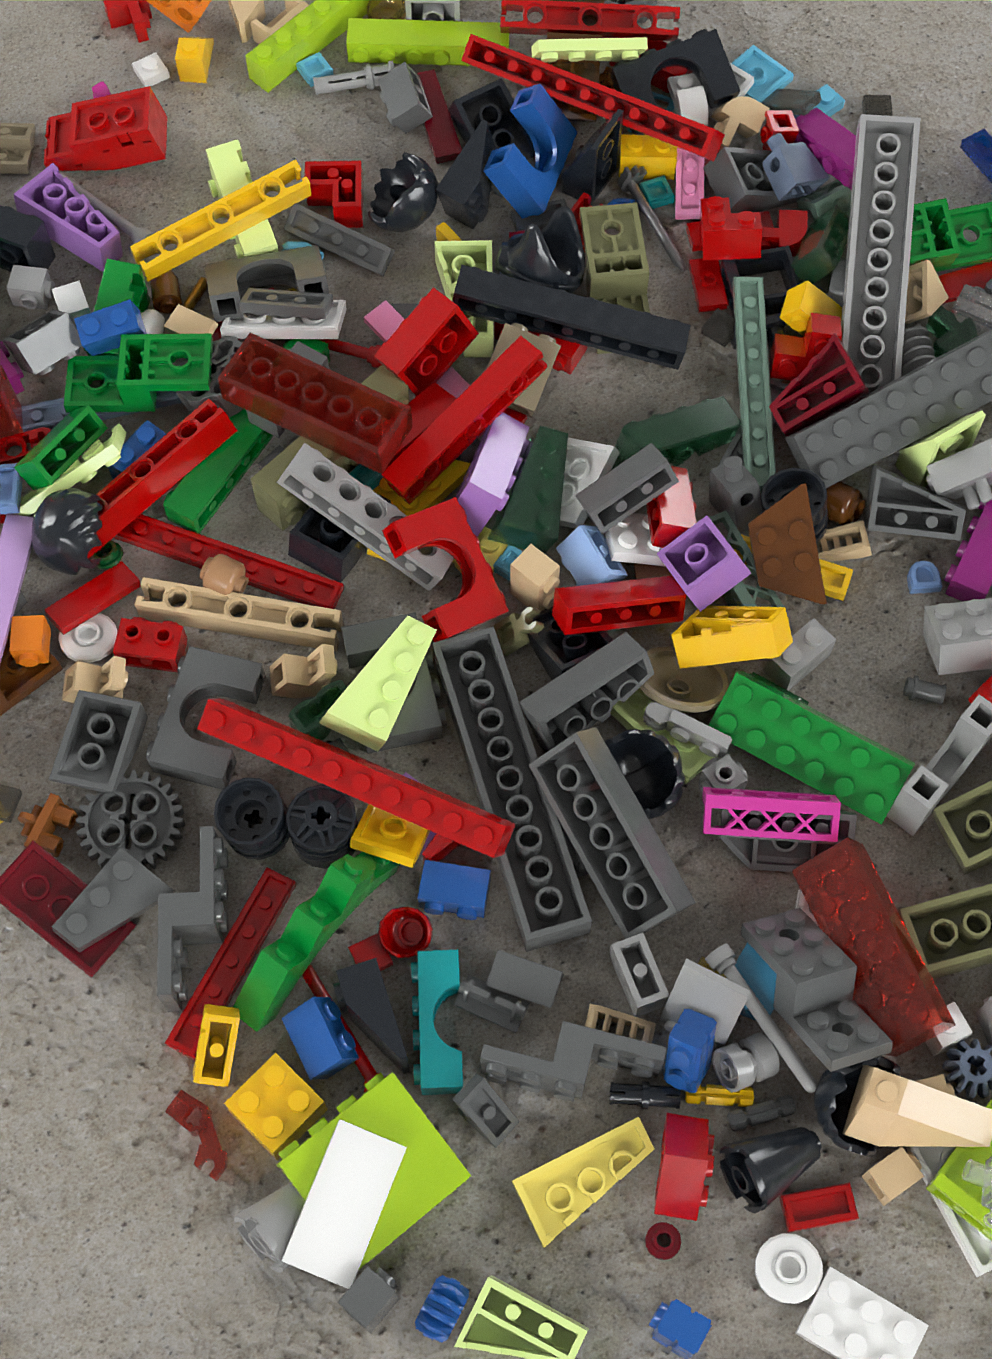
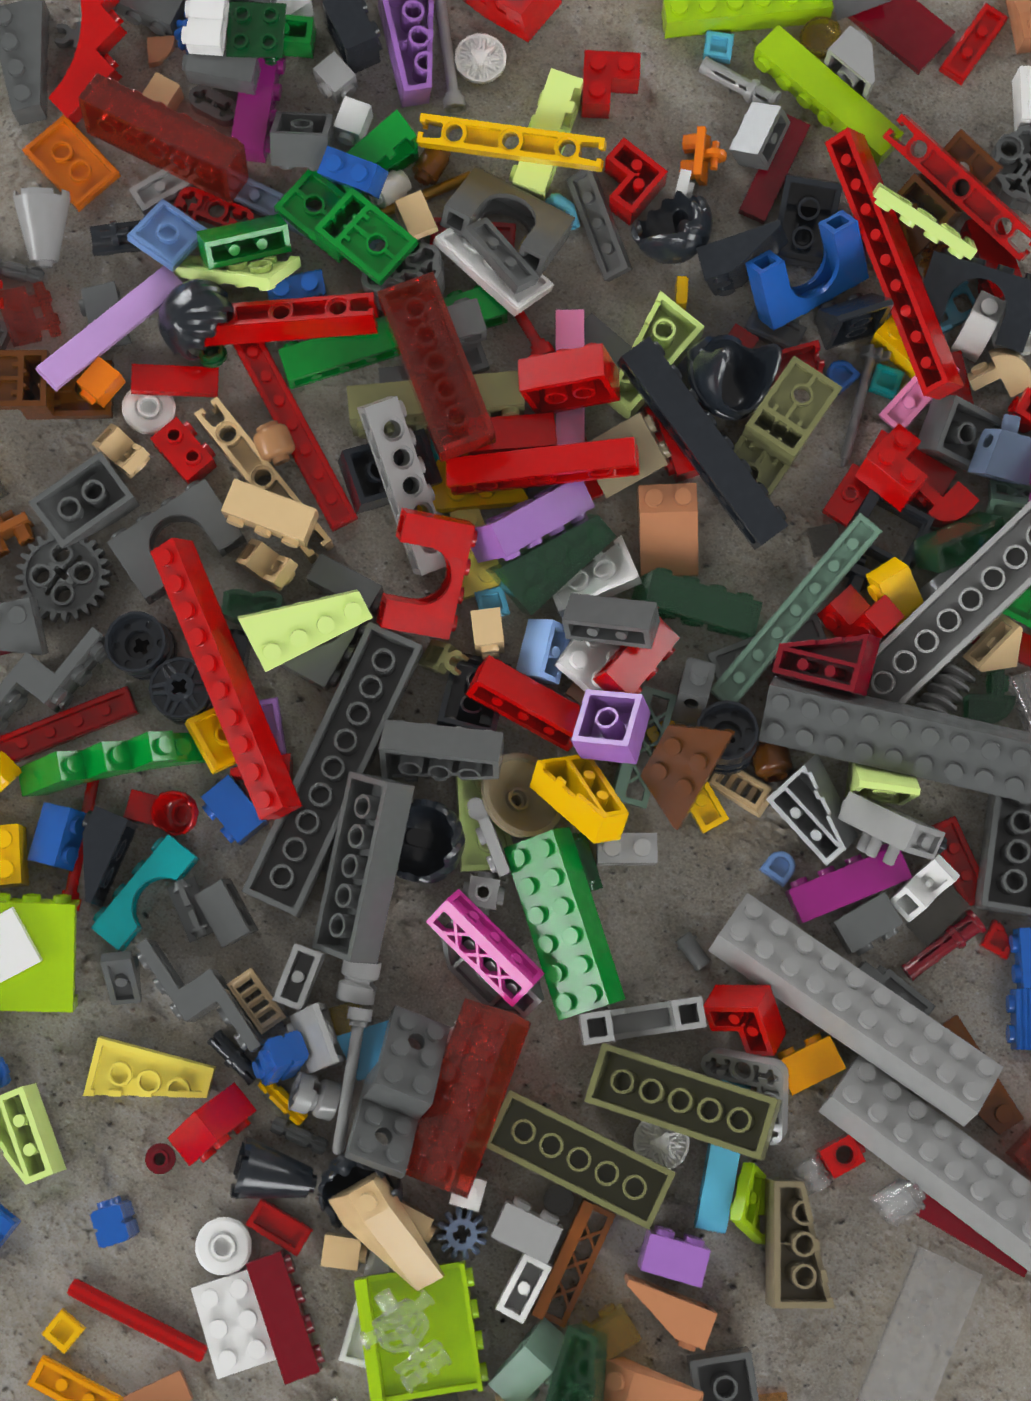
camera: 40 degrees right, 15 degrees up
(136, 197) = (480, 58): none -> white wheel
(257, 133) = (606, 74): none -> red brick
(272, 624) = (269, 514): none -> tan brick
(363, 136) = (704, 154): none -> orange hips
(375, 164) = (684, 184): none -> white plate
(594, 400) = (668, 528): none -> nougat slope
(688, 932) = (358, 982): none -> light grey wheel
(901, 1278) = (284, 1316): none -> dark red brick

